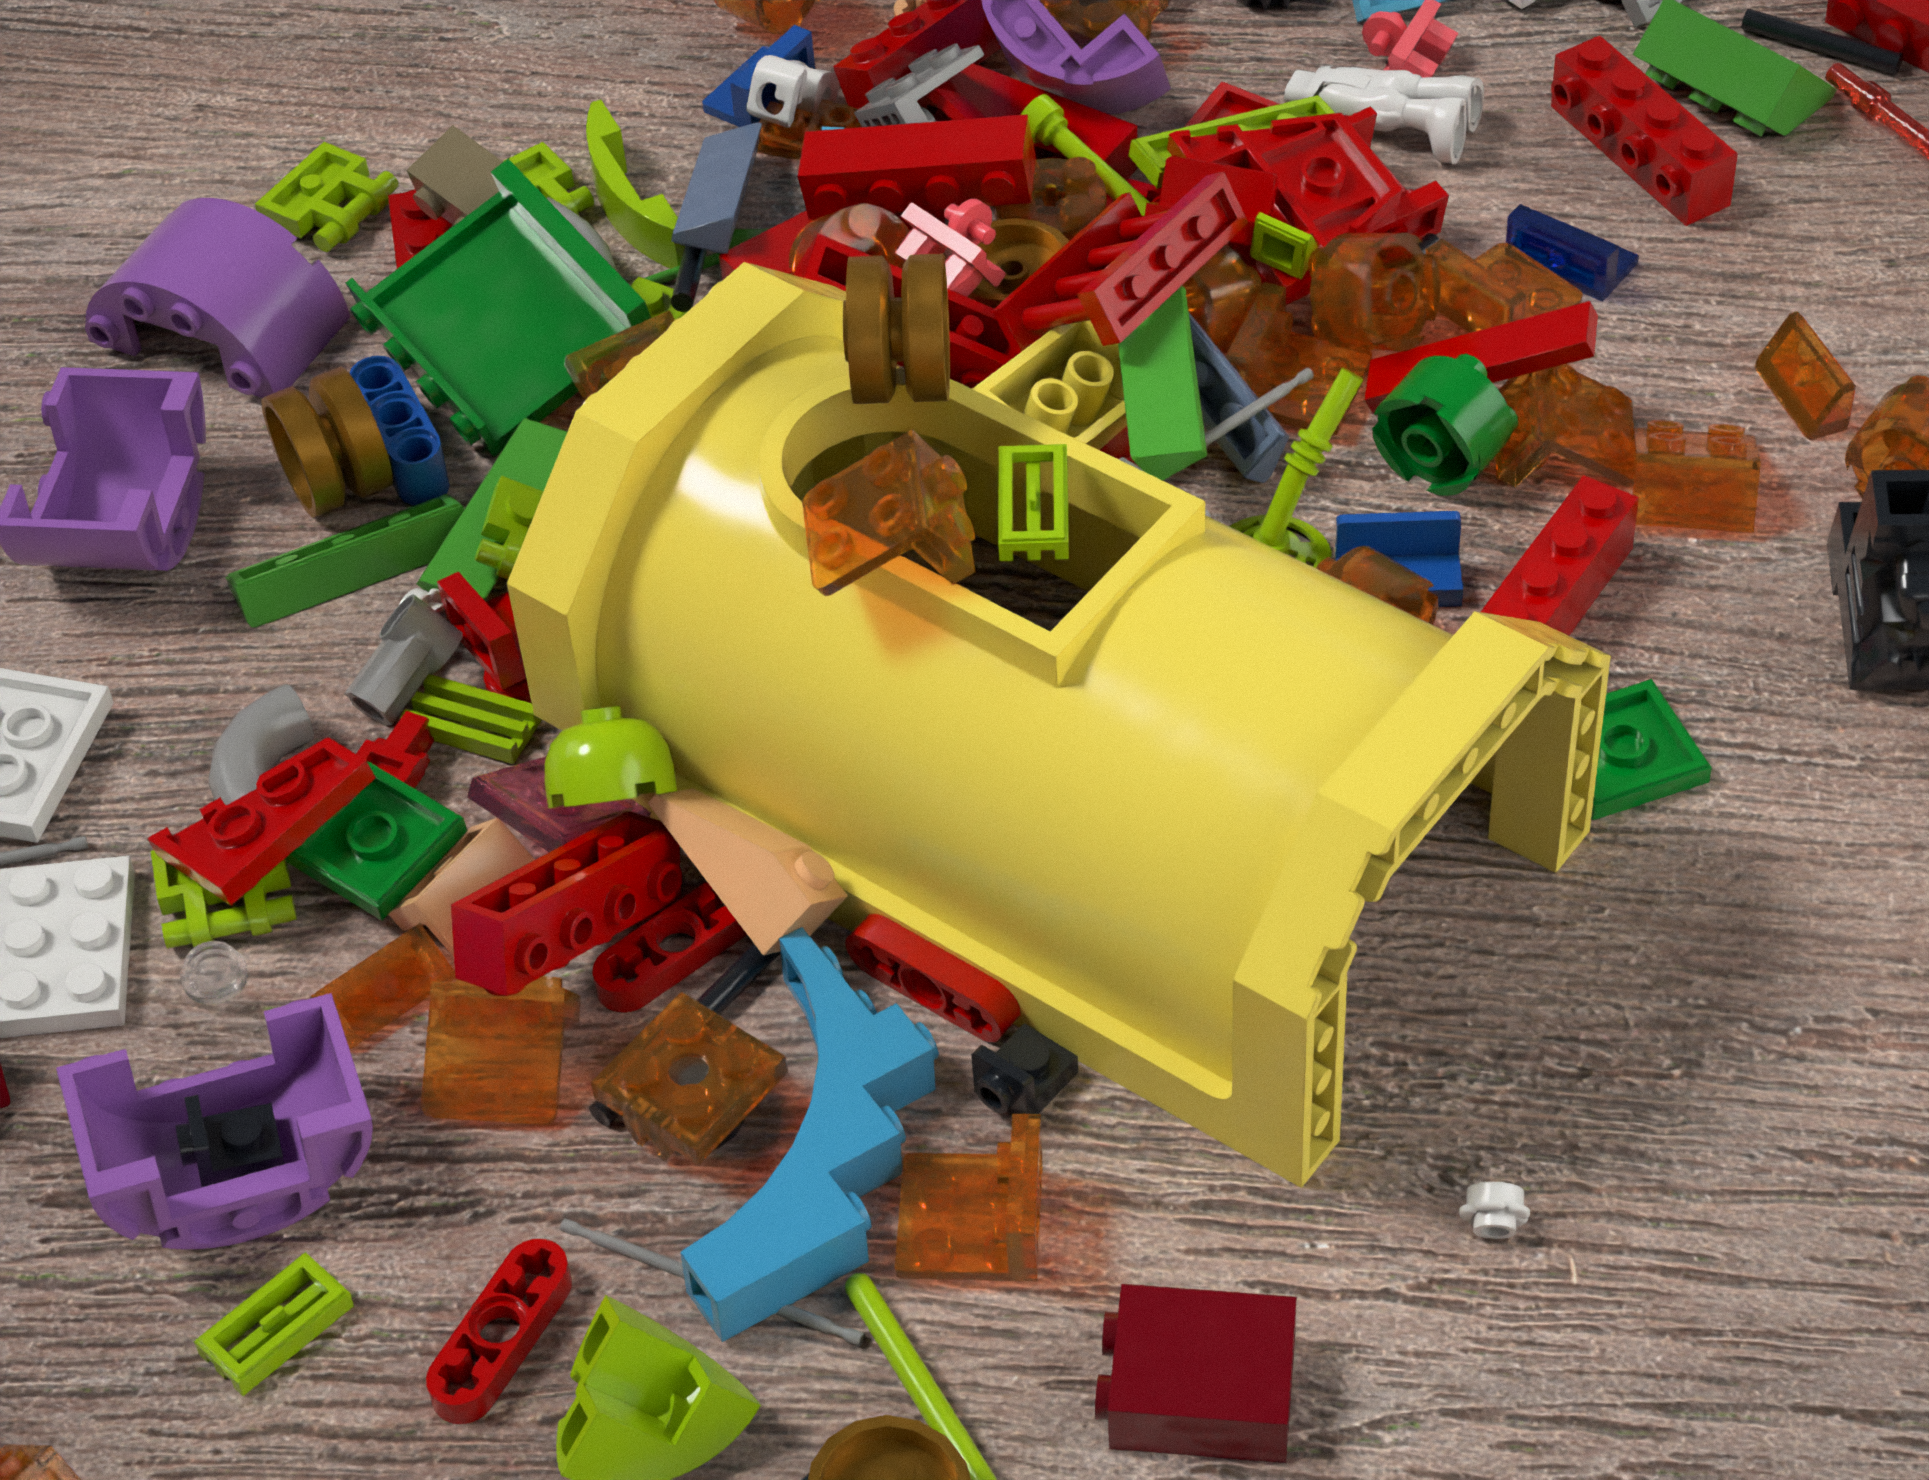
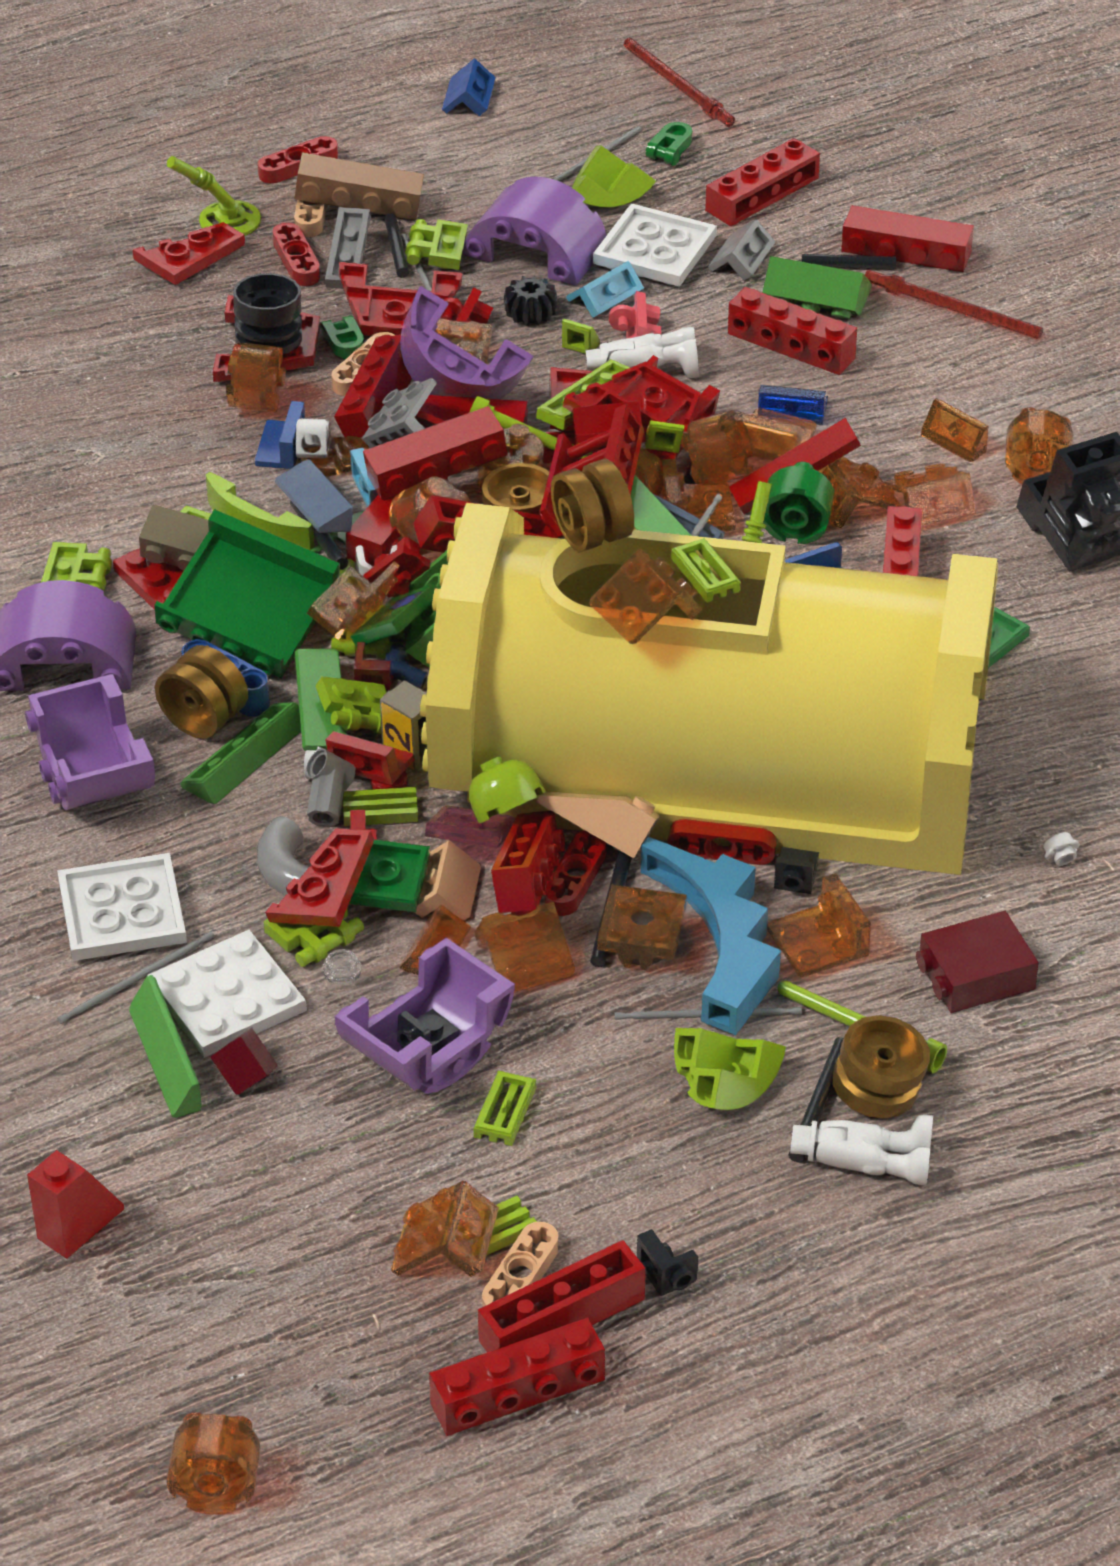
camera: 30 degrees left, 5 degrees down
(501, 1360) = (629, 1080): red beam -> none
(959, 240) = (491, 481): coral hips -> none
(1303, 46) = (578, 336): none -> lime slope

